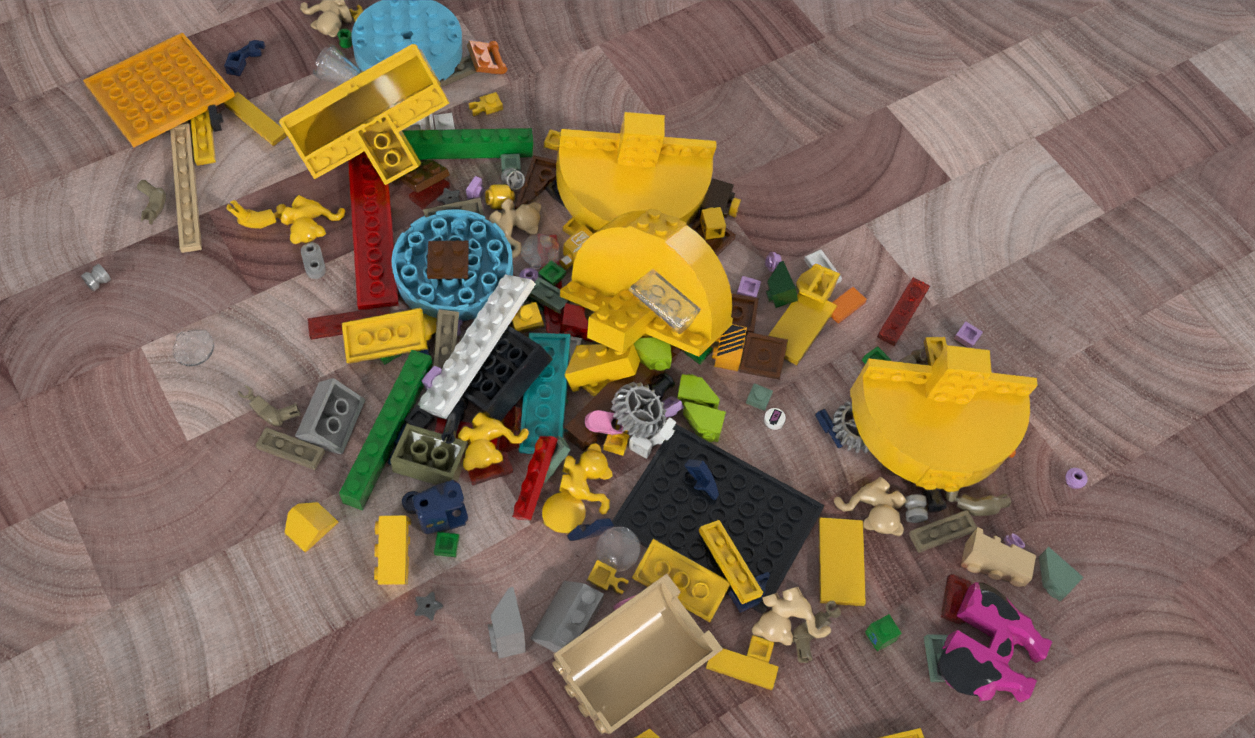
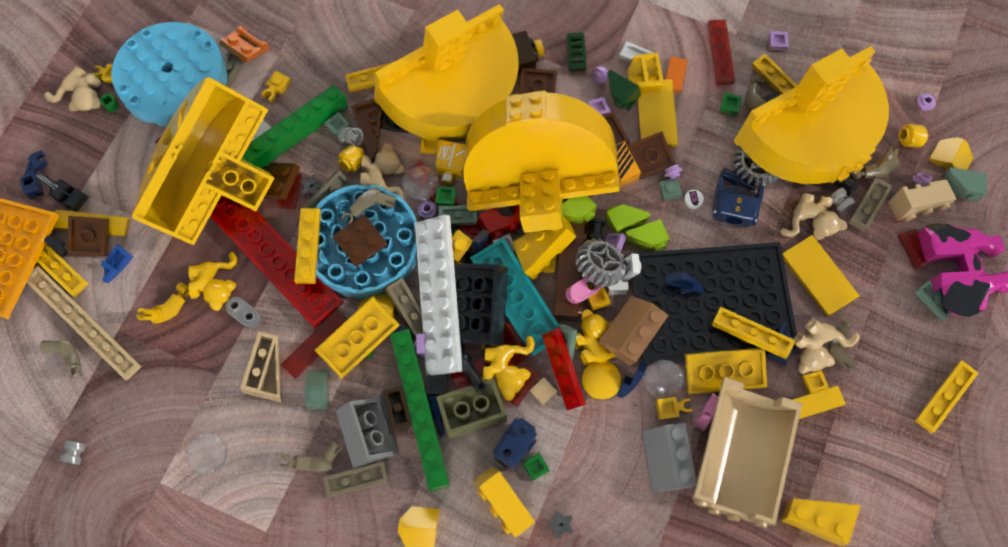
camera: 30 degrees left, 10 degrees up
(244, 125) = (88, 236): none -> reddish brown plate
(248, 160) = (115, 262): none -> blue slope
(254, 82) = (64, 192): none -> black beam
(290, 311) = (263, 369): none -> tan wedge
(318, 358) = (317, 390): none -> sand green slope
(335, 66) = (130, 134): clear cone -> none
(366, 413) = (395, 409): none -> dark brown brick
(402, 237) = (307, 246): none -> yellow plate
(407, 502) = (484, 453): dark blue tile -> none
(475, 188) = (327, 165): lavender plate -> none
(479, 230) = (367, 200): none -> dark tan arm
(505, 487) = (543, 391): none -> tan tile
(506, 628) = (640, 498): light grey slope -> none
(548, 325) = (478, 244): none -> dark blue slope
(622, 486) = (633, 329): none -> medium nougat slope
(665, 301) = (570, 165): clear slope -> none
(713, 223) = (535, 72): yellow brick -> none
(772, 220) = (576, 40): none -> dark green slope
(773, 382) = (673, 172): none -> lavender plate
(809, 446) = (736, 204): none -> dark blue piece
(883, 632) = (888, 309): green brick -> none
(1036, 498) = (913, 135): none -> yellow head
(1067, 541) = (952, 153): none -> yellow slope

